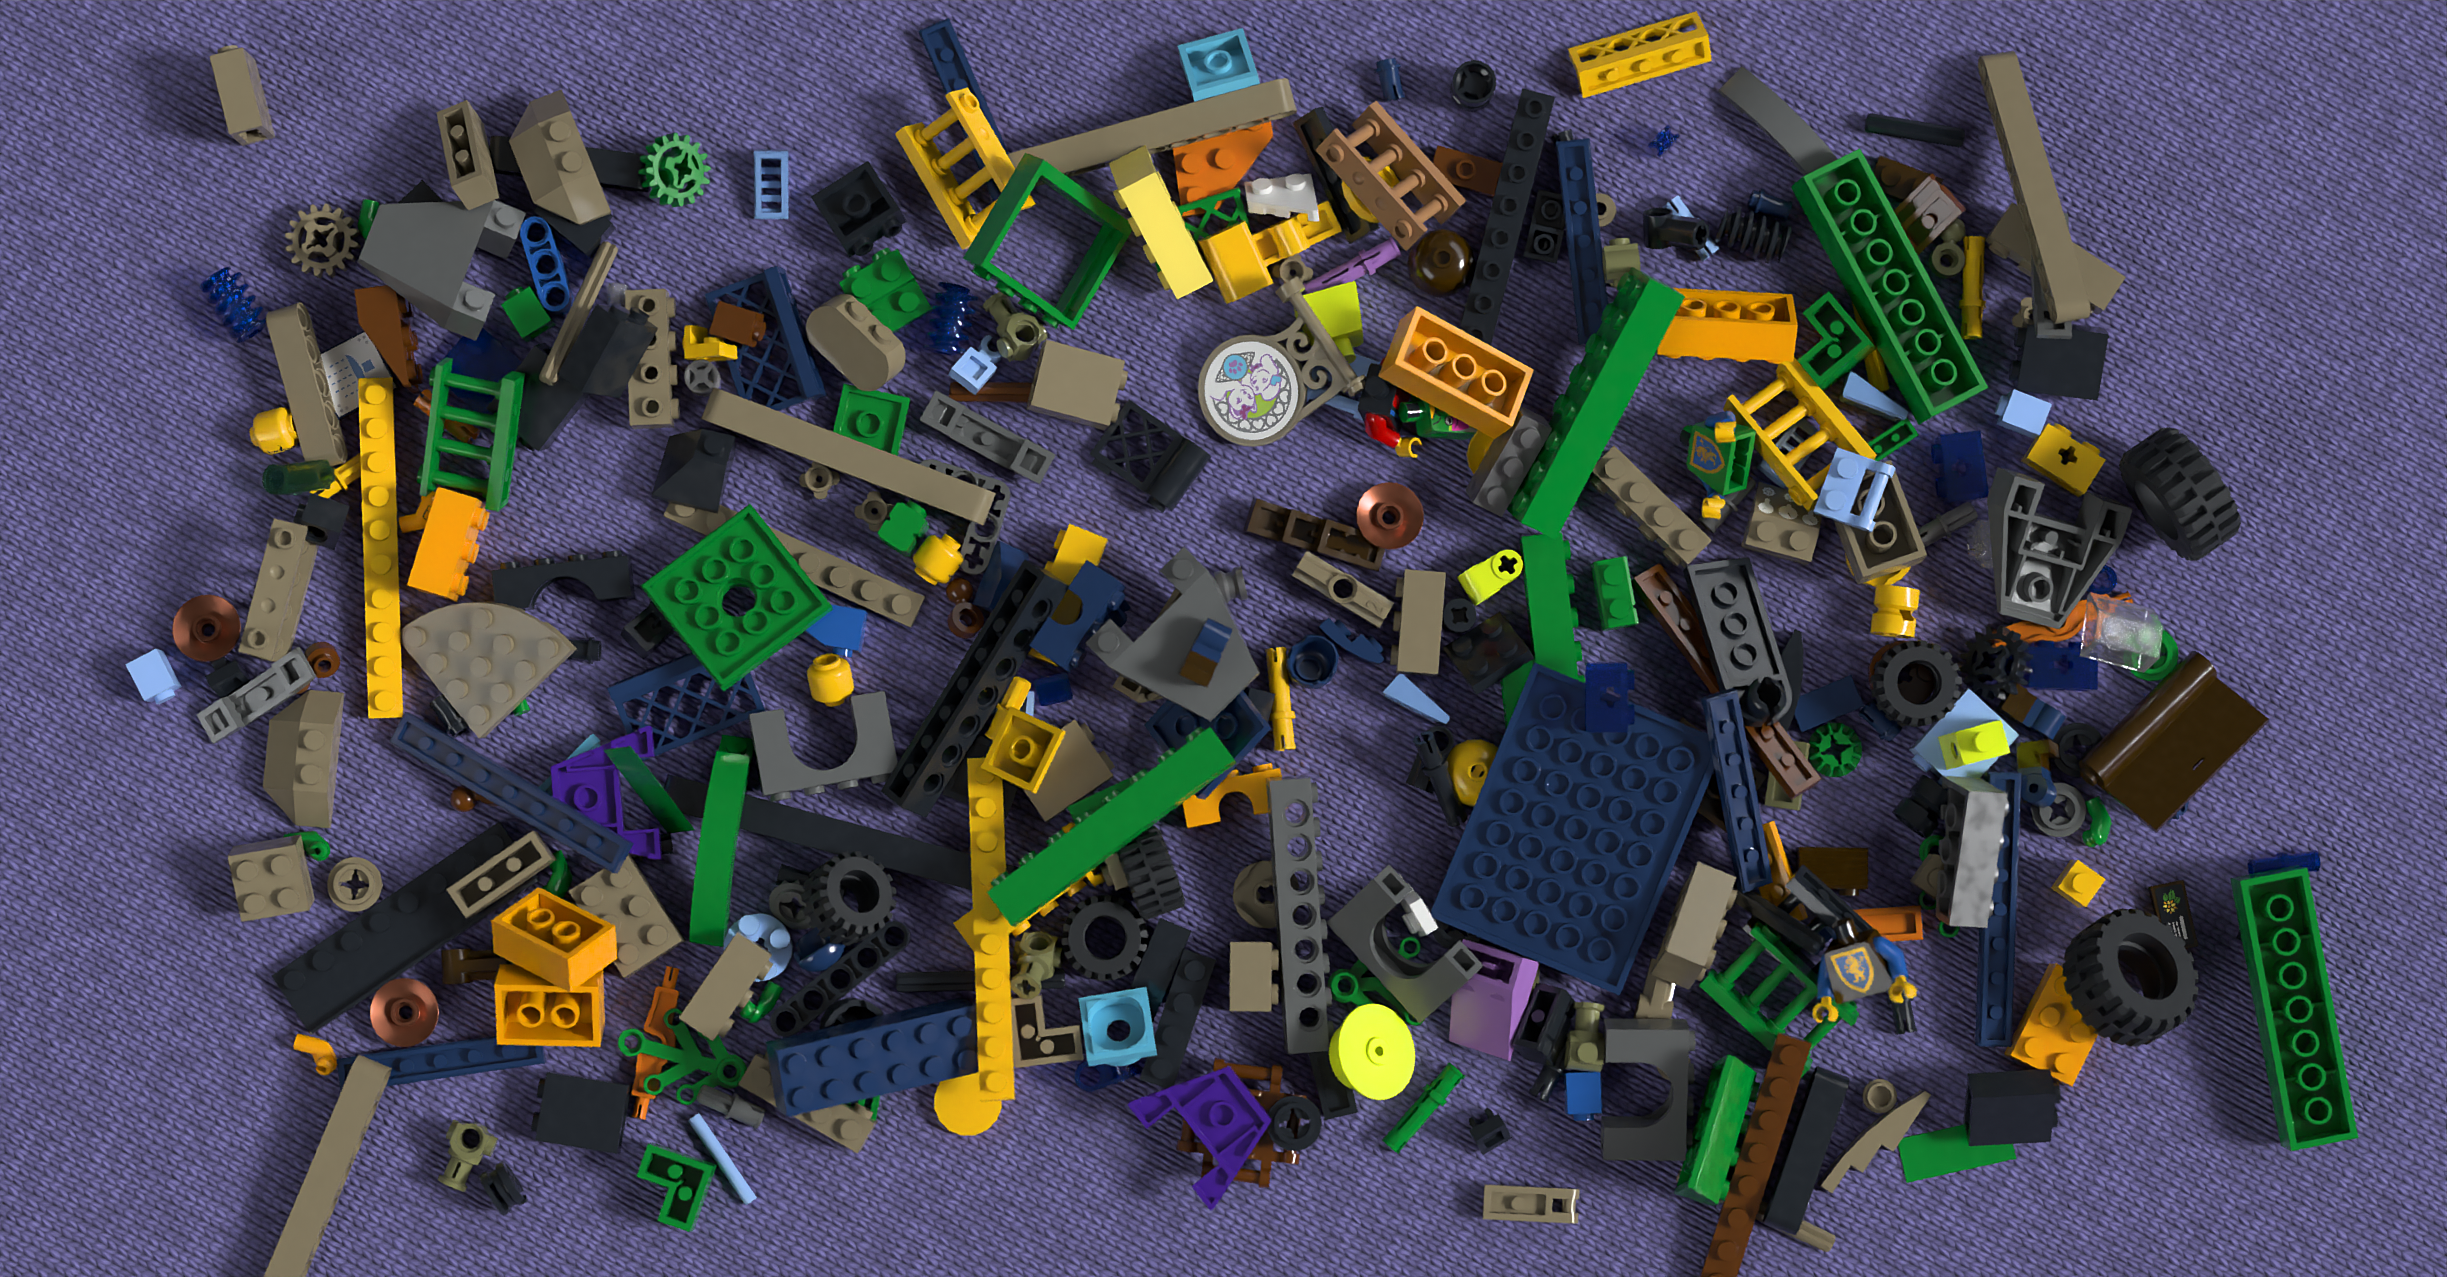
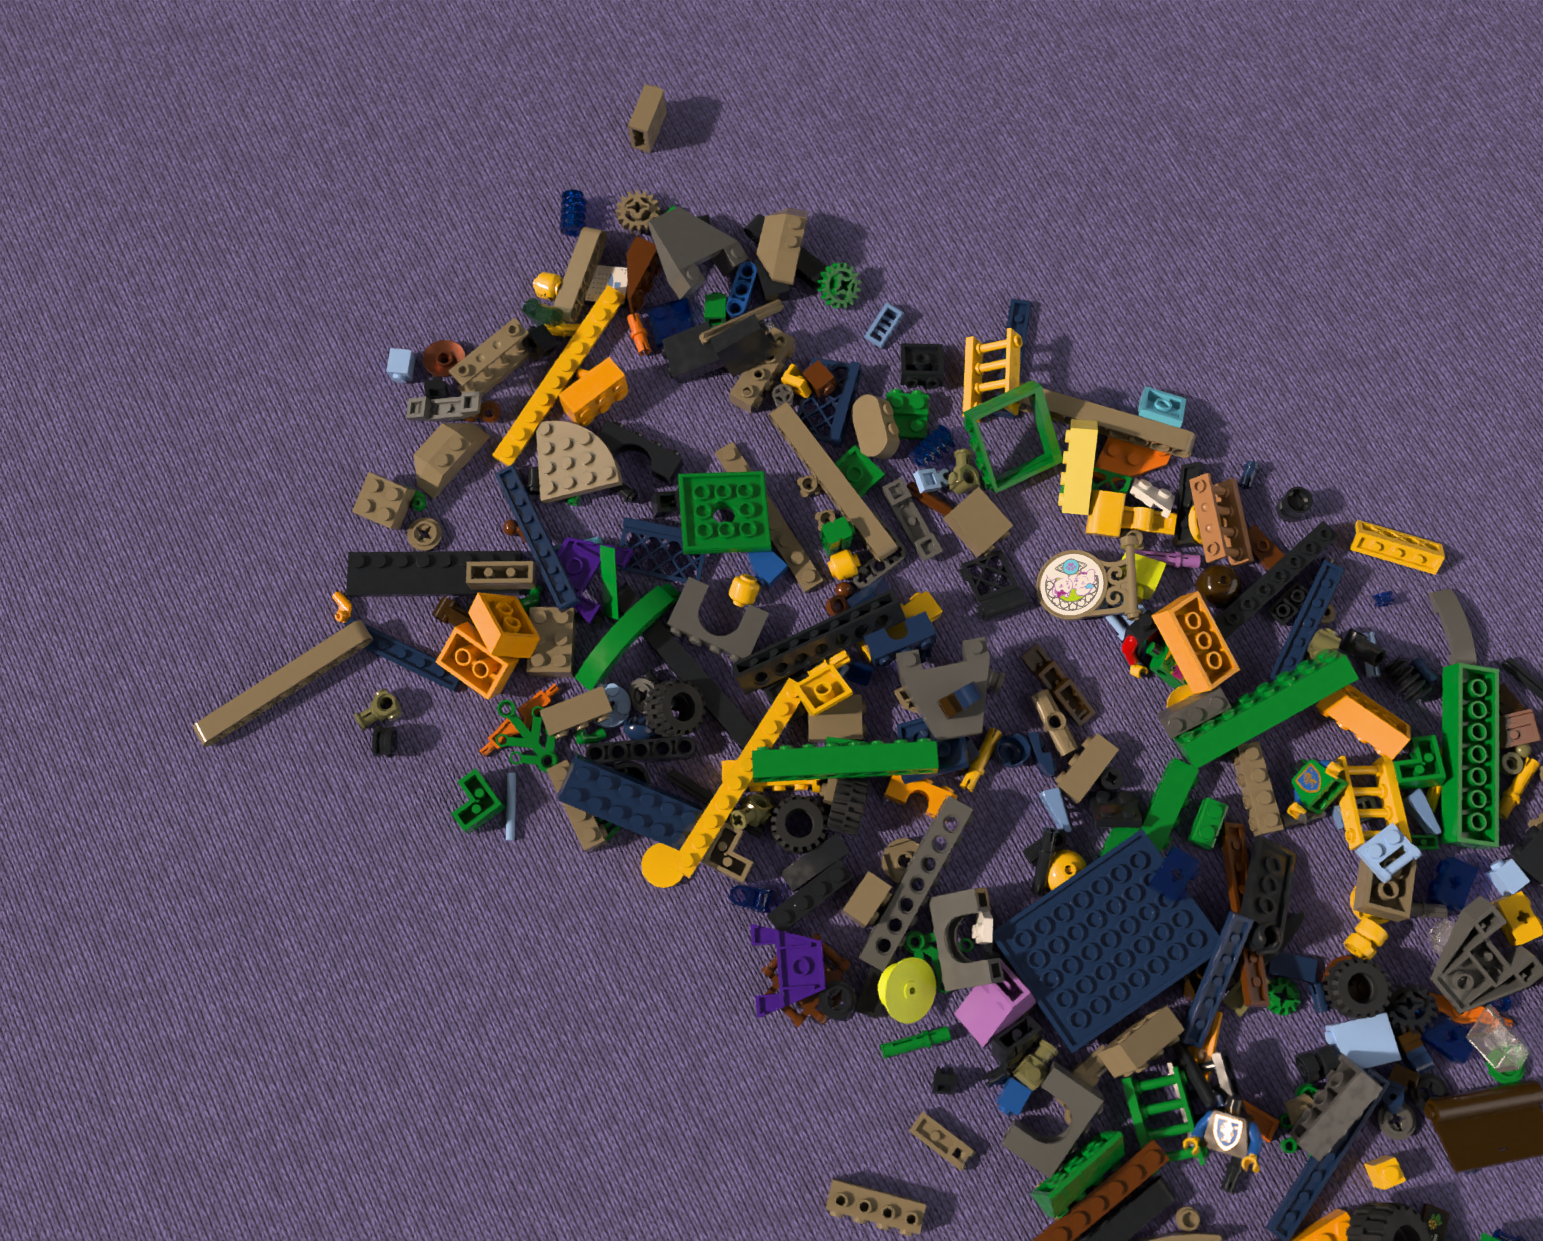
camera: 40 degrees right, 10 degrees down
(386, 1012) = (394, 608): copper dish -> none
(467, 155) = (739, 211): dark tan brick -> none
(503, 424) = (664, 349): green fence -> none
(581, 1112) = (454, 730): black brick -> none
(695, 469) = (748, 438): black slope -> none
(731, 1106) = (535, 780): dark grey axle -> none
(1103, 1009) = (784, 868): medium azure piece -> none
(1398, 502) = (1113, 695): copper dish -> none
(1485, 578) = (1138, 768): neon yellow piece -> none
(1781, 526) = (1326, 849): dark tan slope -> none
(1837, 867) = (1247, 1067): dark brown brick -> none
(1974, 744) = (1376, 1046): neon yellow torso -> none
(2100, 823) = (1417, 1146): green arm -> none

